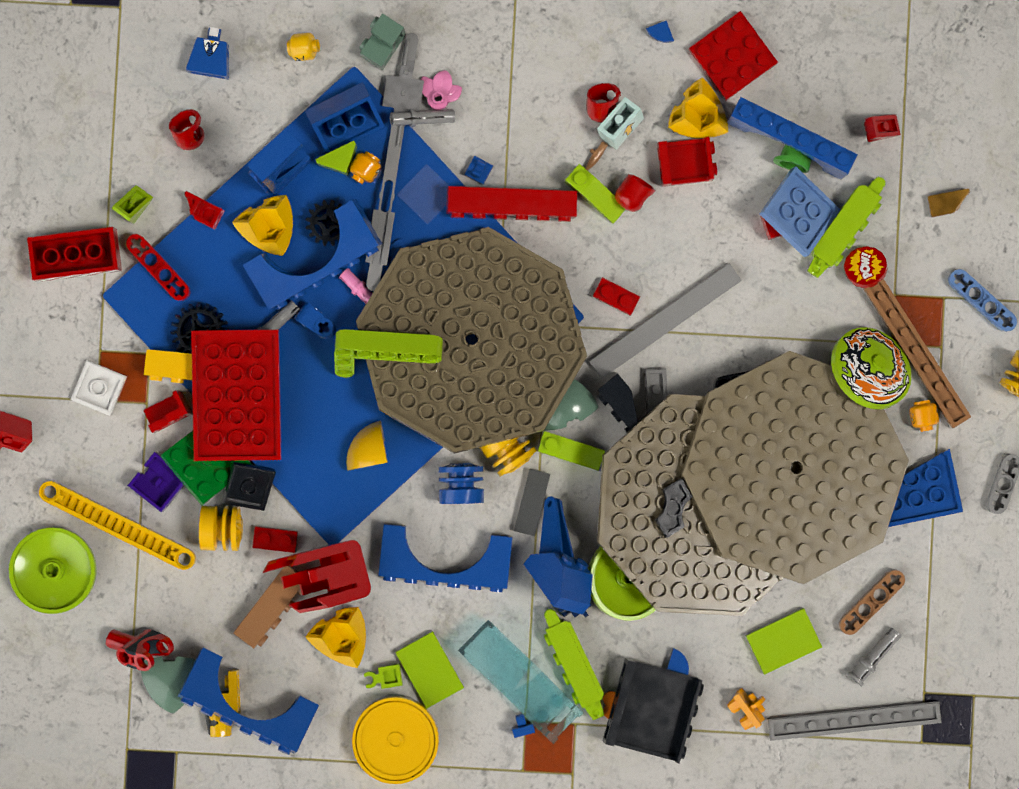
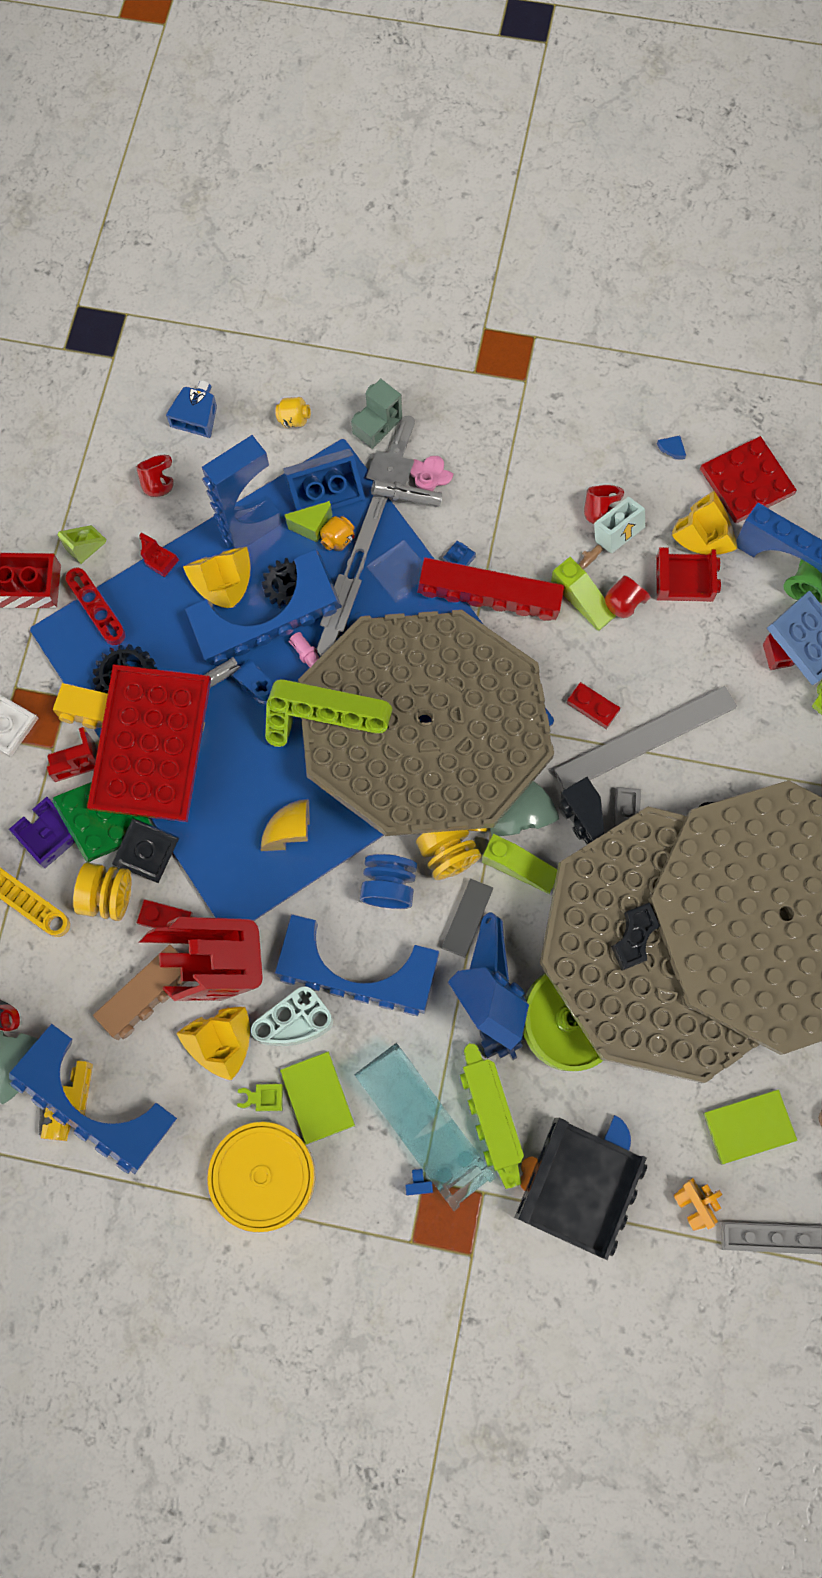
camera: 15 degrees right, 15 degrees down
(407, 613) = (300, 1026): none -> light aqua beam

